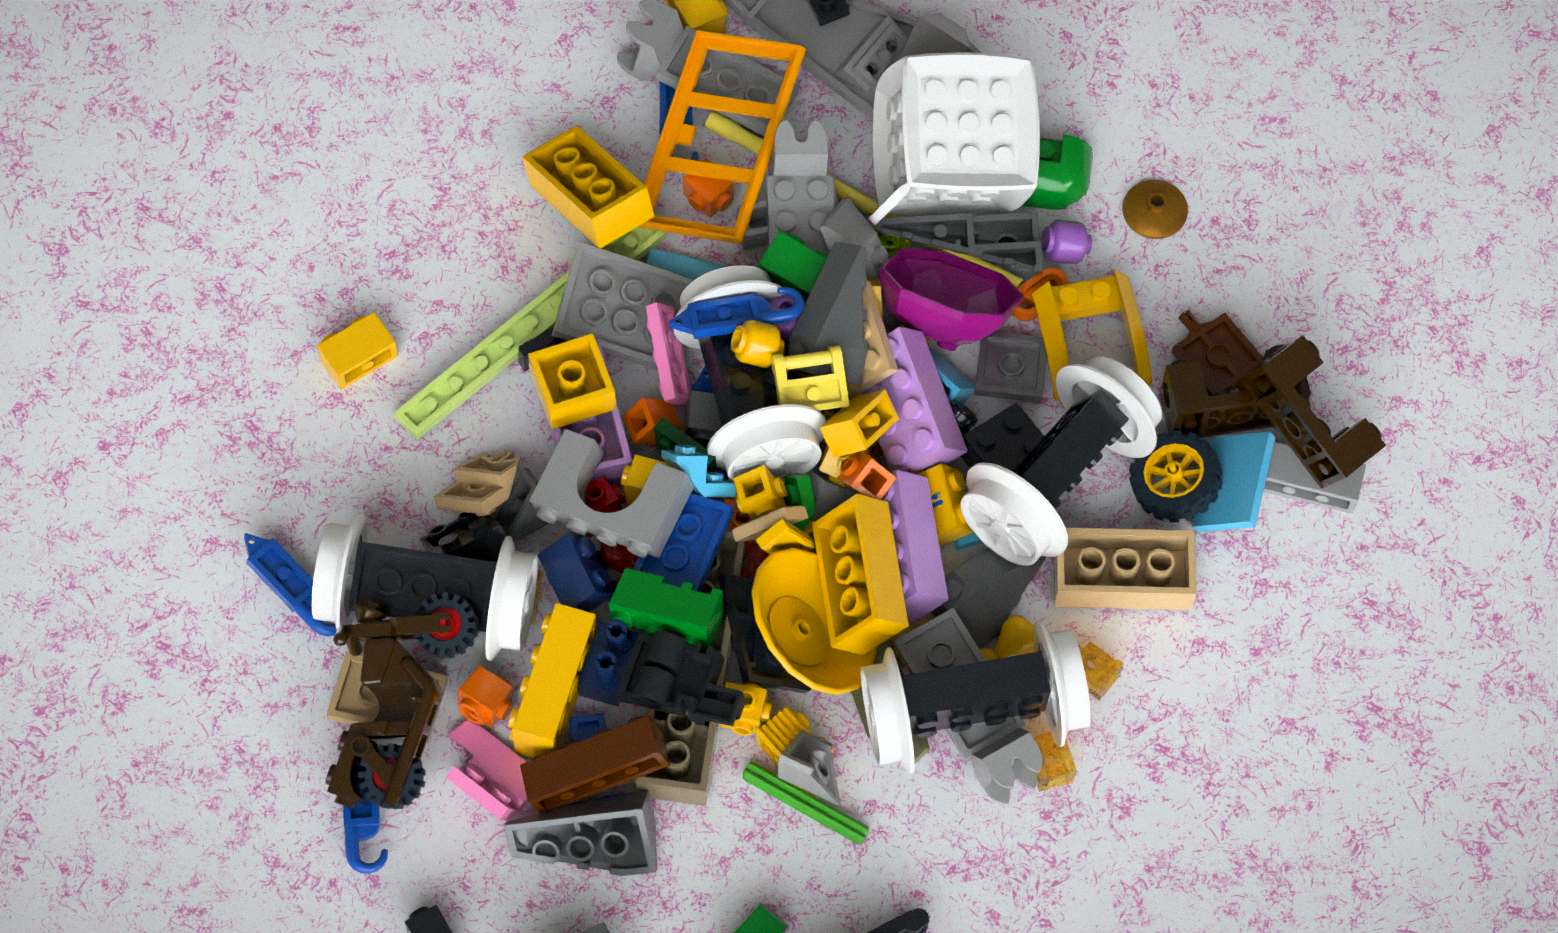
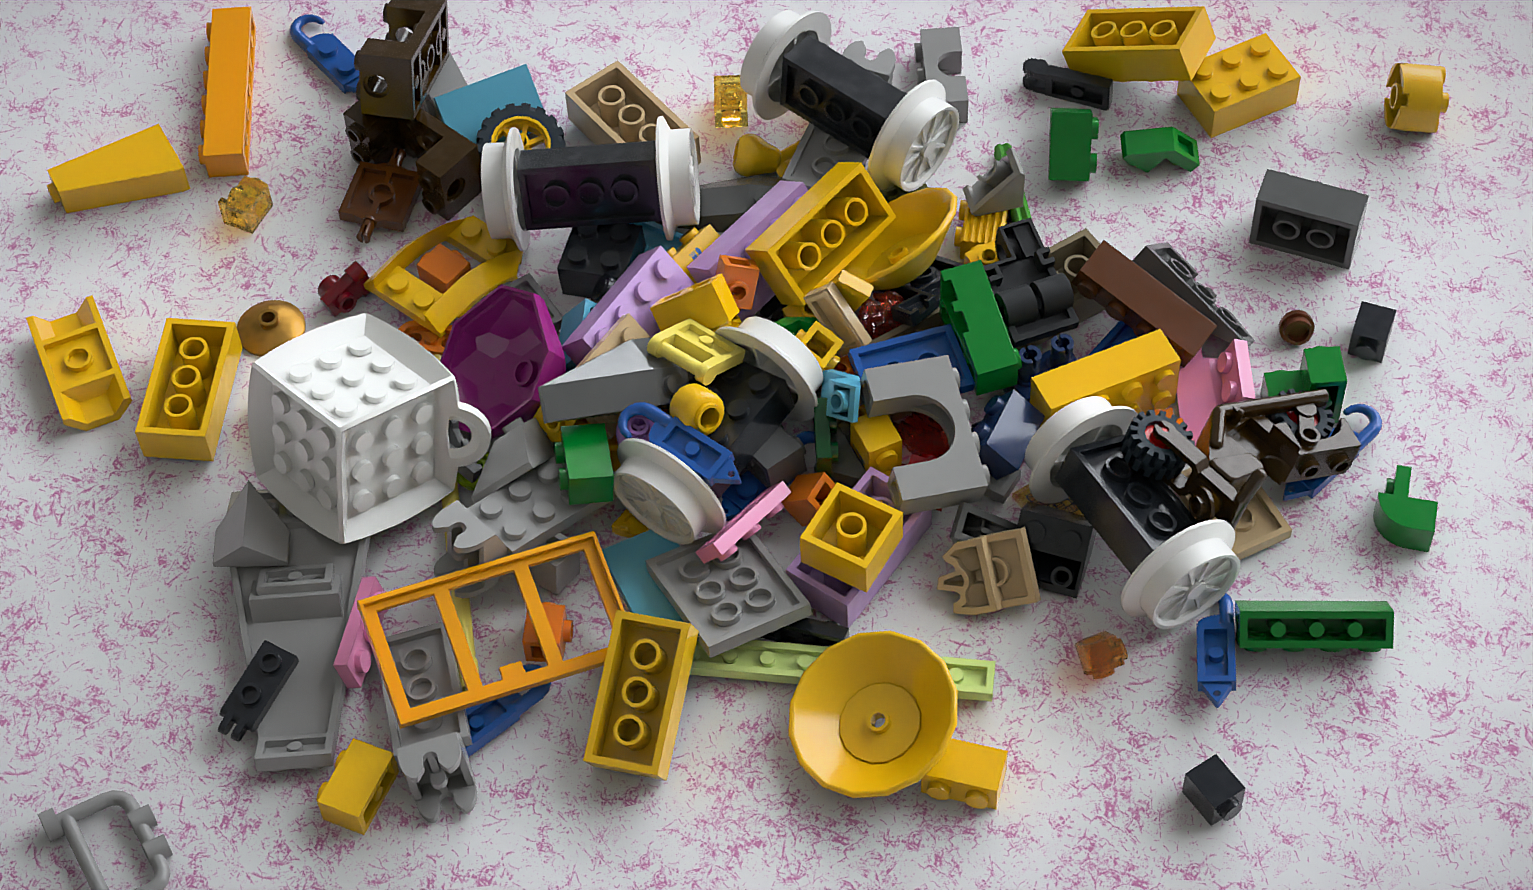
camera: 125 degrees left, 10 degrees down
(193, 485) = (1214, 790): none -> black brick
(240, 652) = (1314, 625): none -> green brick
(264, 798) = (1404, 519): none -> green brick
(355, 500) = (1101, 654): none -> clear orange plate
(423, 828) = (1319, 369): none -> green brick
(439, 310) = (853, 688): none -> yellow dish
(490, 890) = (1296, 327): none -> copper plate
(814, 874) = (1070, 144): none -> green brick
(818, 85) = (355, 648): none -> bright pink plate
(958, 829) = (942, 55): none -> light grey arch
(1096, 339) = (442, 267): none -> orange brick
(1127, 106) = (189, 389): none -> yellow brick
(1141, 267) = (342, 292): none -> dark red plate
(1224, 59) = (81, 367): none -> yellow piece
(1291, 260) = (246, 204): none -> clear yellow brick
(1402, 202) = (119, 173): none -> yellow slope
(1420, 425) = (327, 53): none -> blue plate
(1431, 324) = (229, 92): none -> light orange brick

